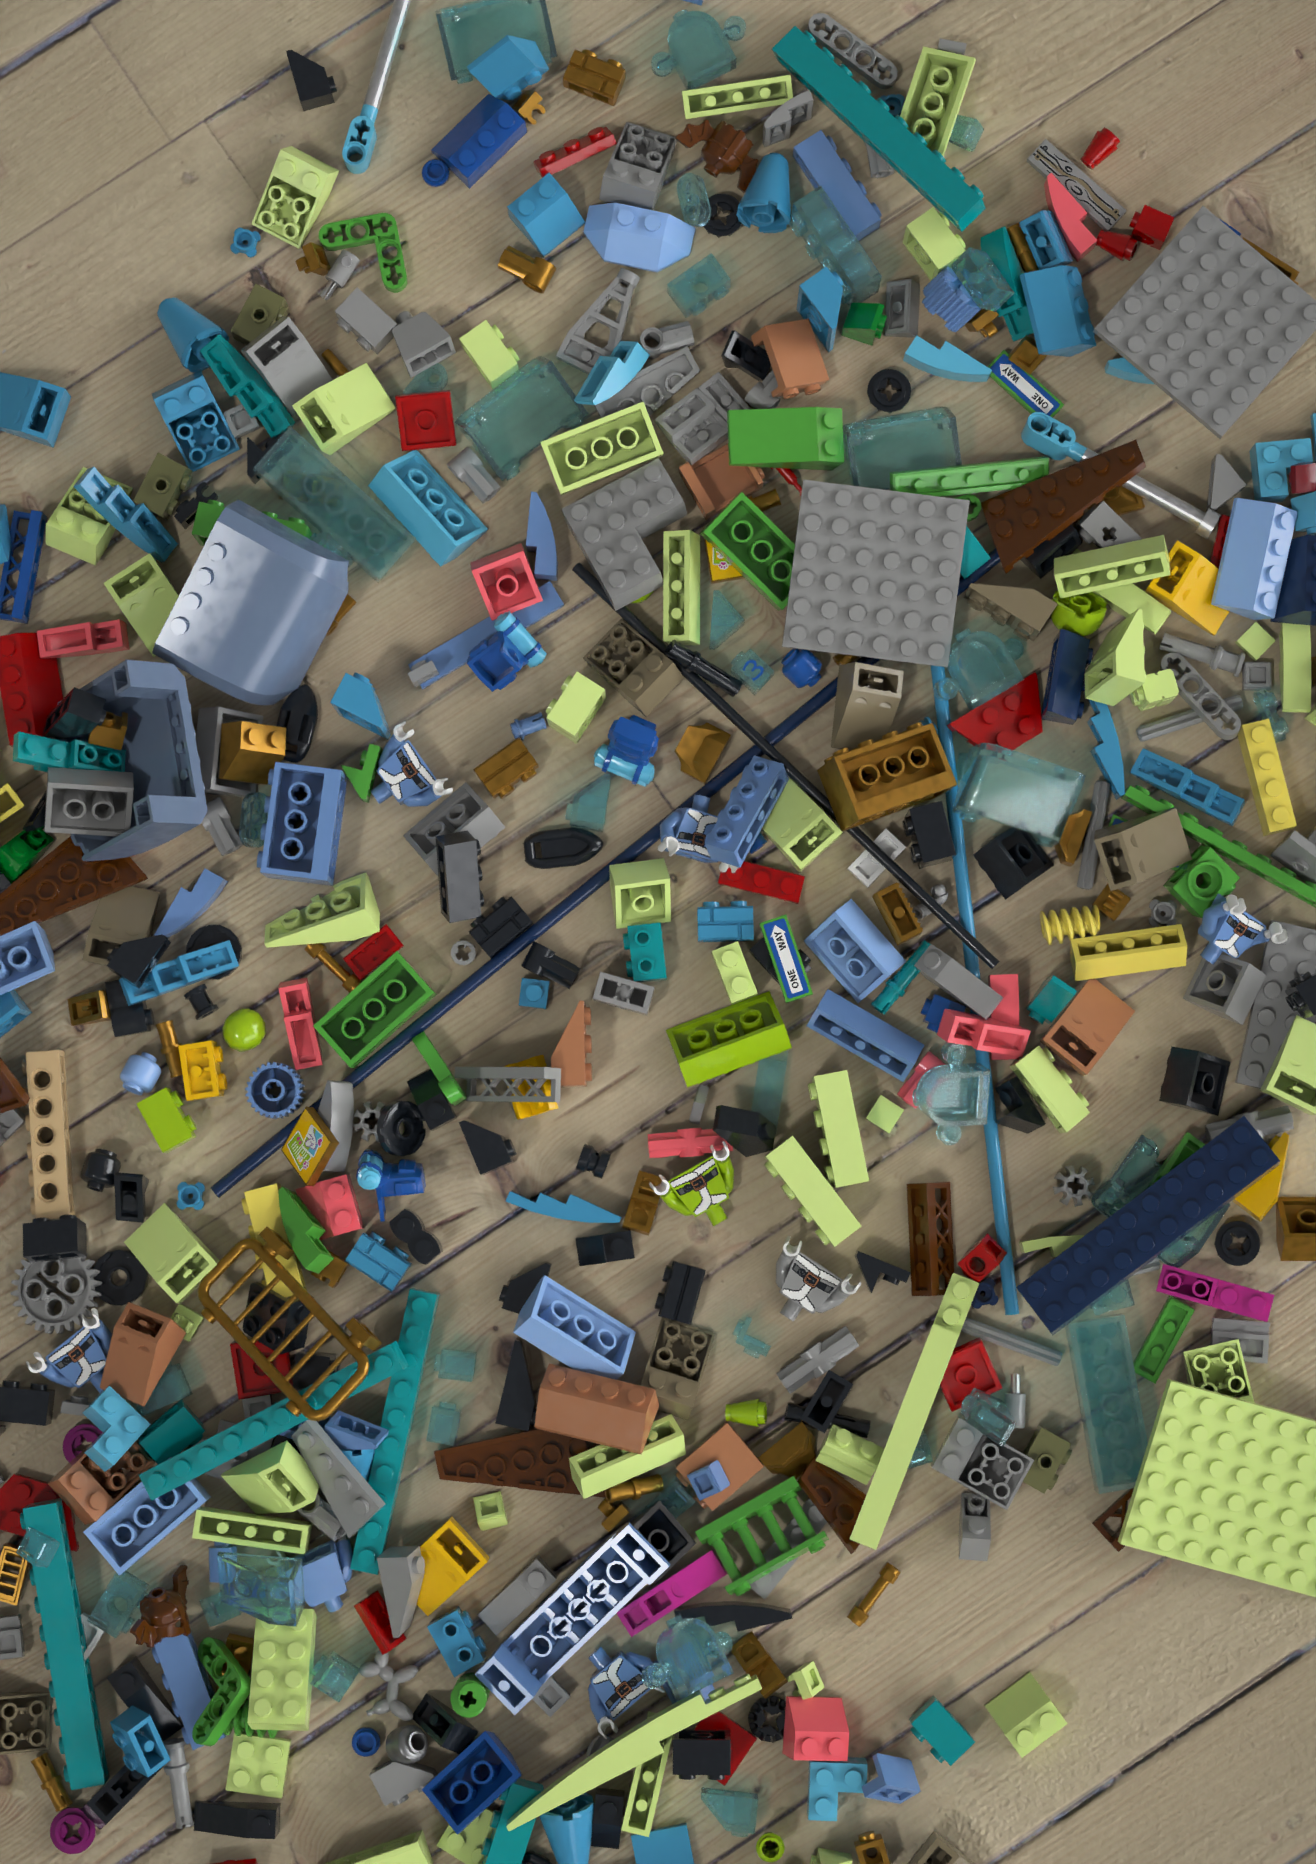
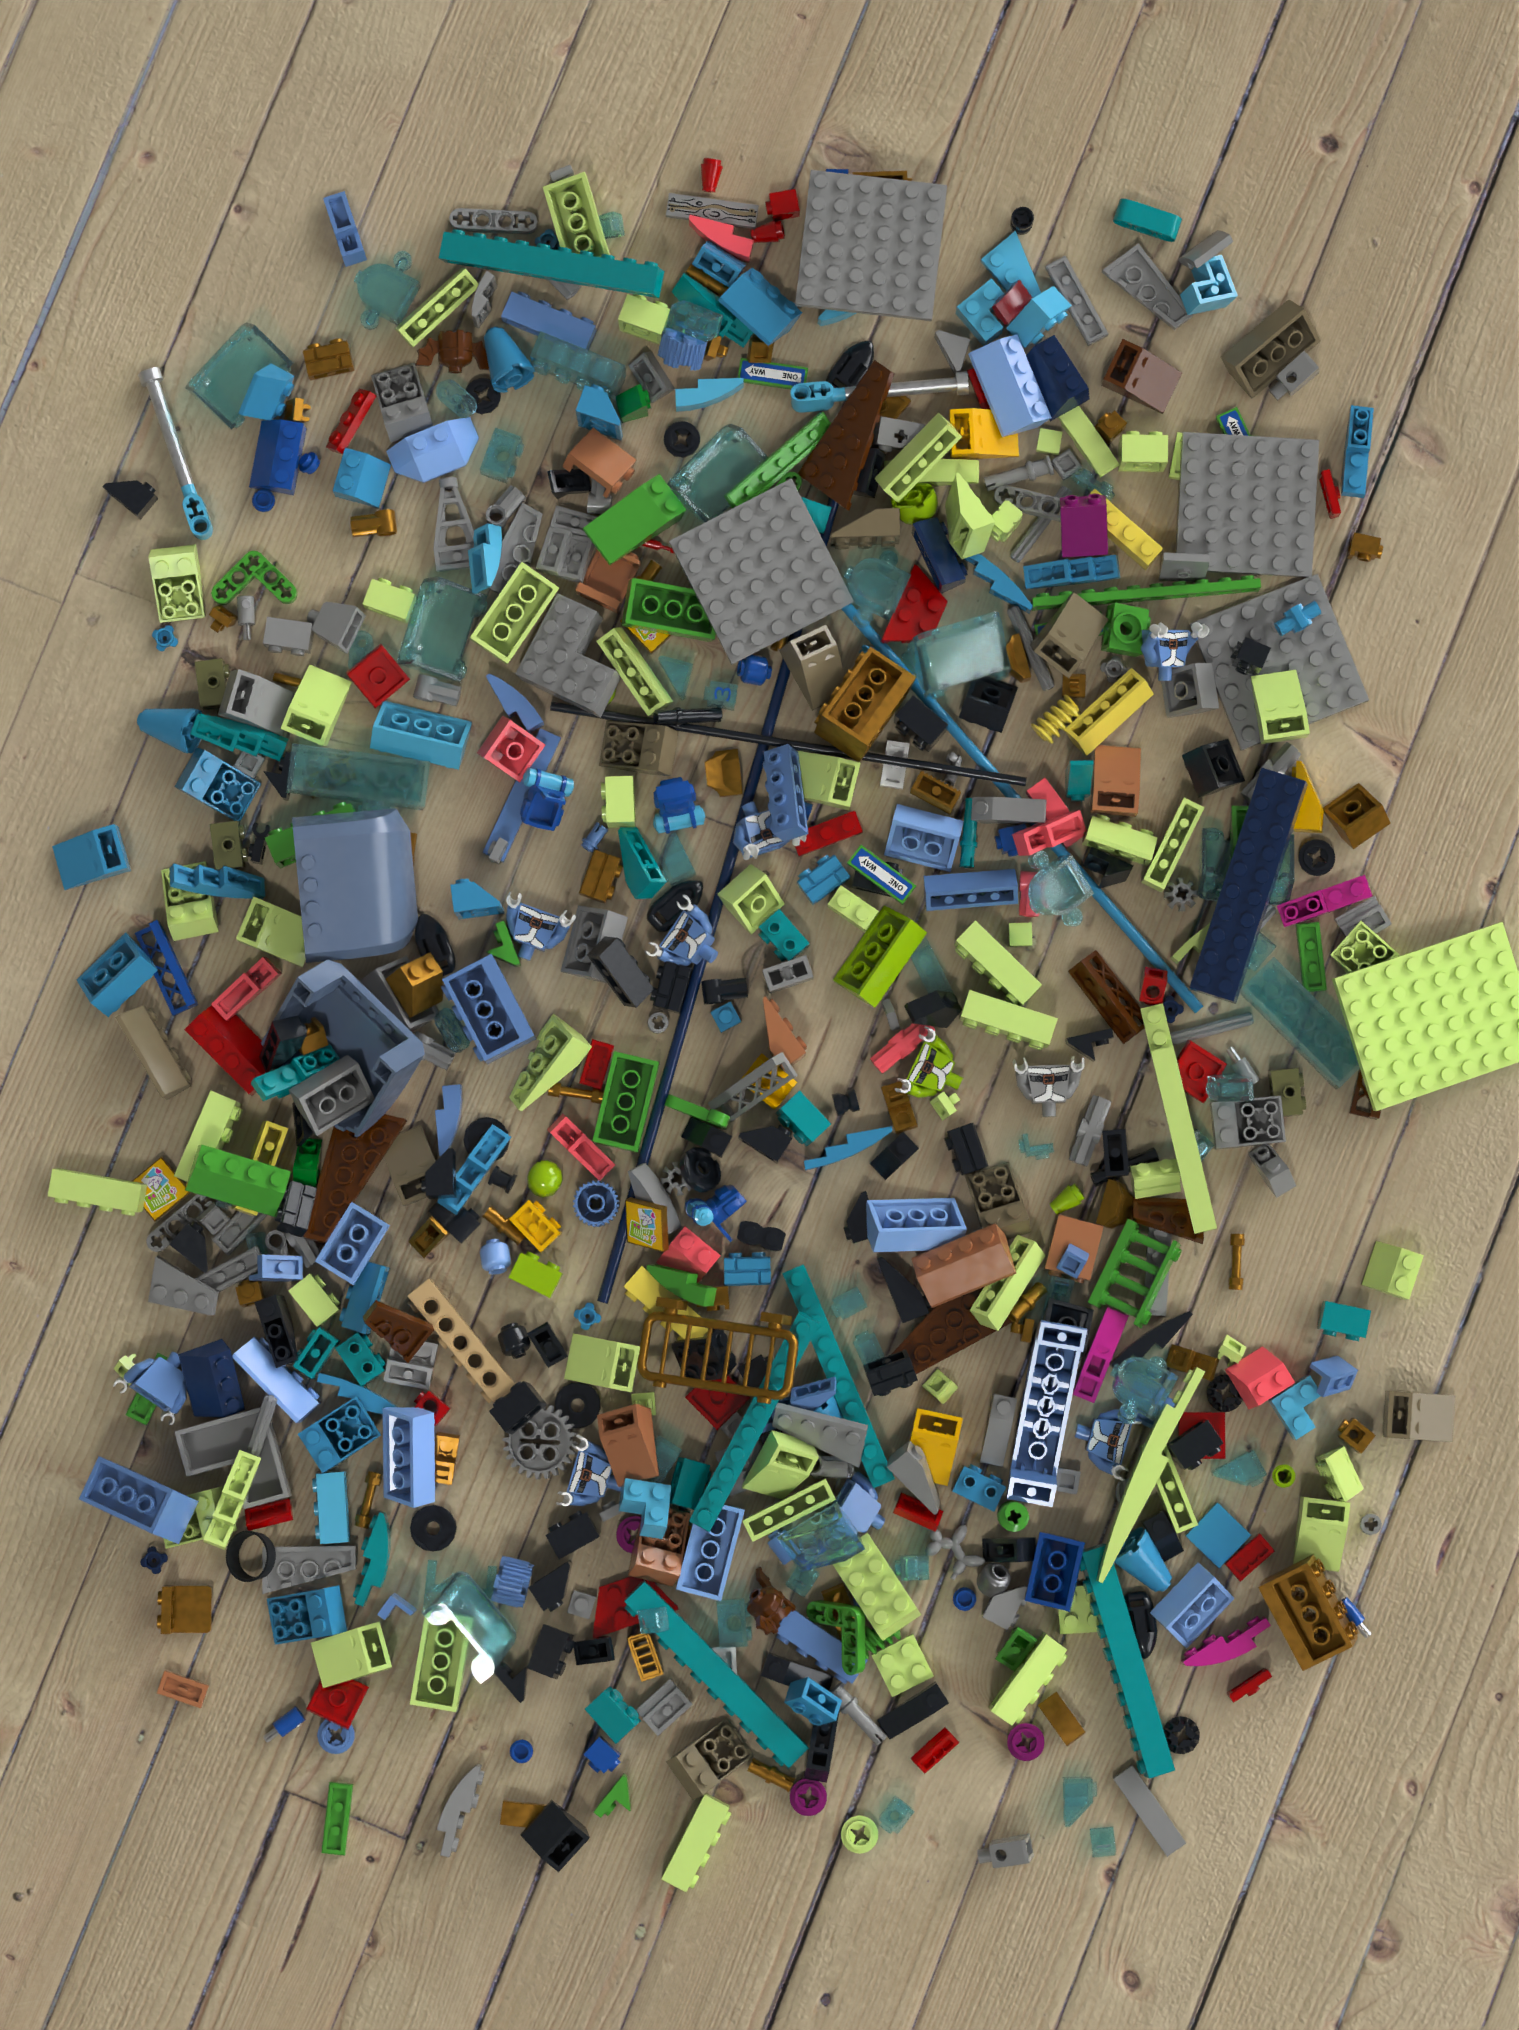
camera: 40 degrees left, 0 degrees up
(381, 1829) = (1016, 1648): none -> bright green slope
(446, 1465) = (890, 1373): none -> black brick
(505, 165) = (309, 463): none -> blue plate
(538, 1148) = (802, 1119): none -> teal brick
(549, 889) = (688, 938): none -> medium blue torso
(552, 785) = (639, 865): none -> teal slope
(690, 1232) = (945, 1105): none -> yellowish green tile
(1100, 1130) = (1172, 845): none -> yellowish green brick
(1110, 431) = (852, 364): none -> black piece
(1232, 748) = (1083, 525): none -> magenta panel

